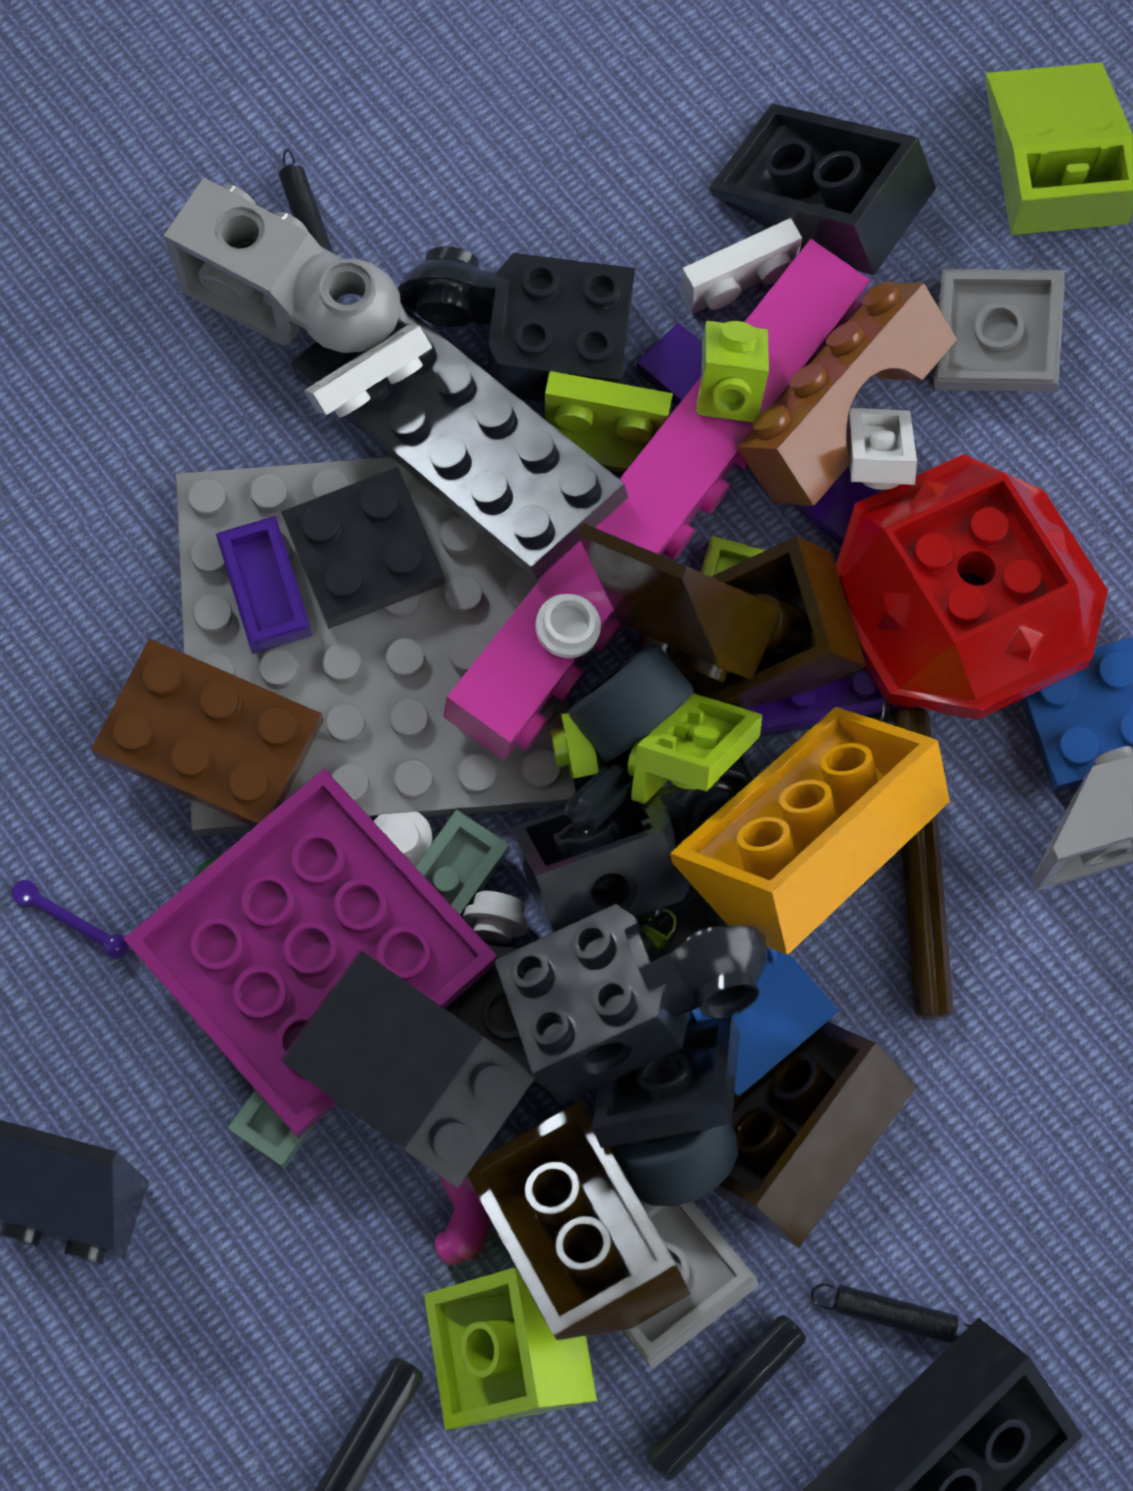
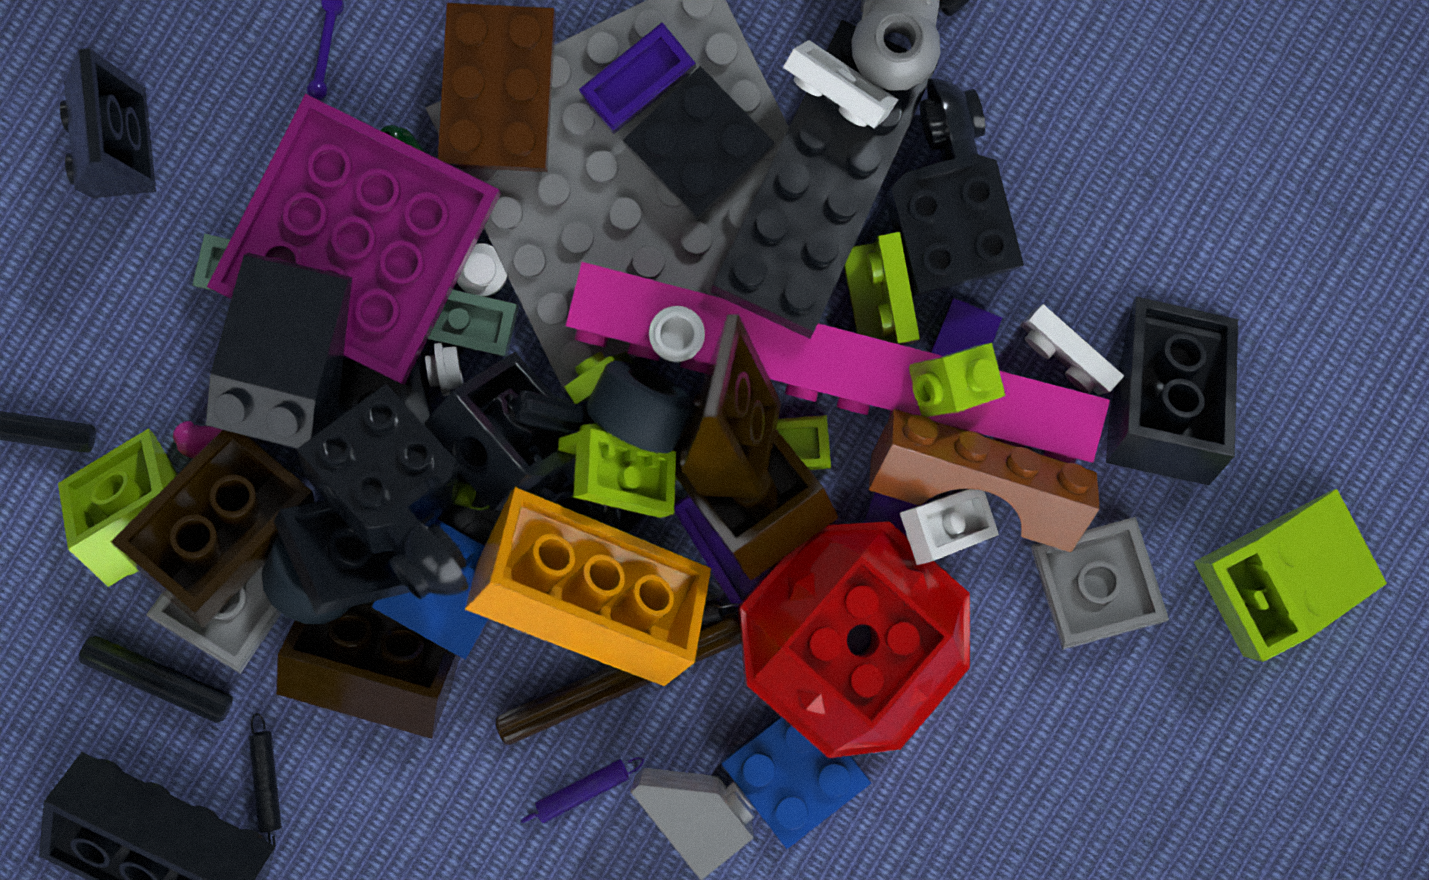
camera: 70 degrees right, 15 degrees up
(1034, 952) = (581, 791): none -> dark purple piece

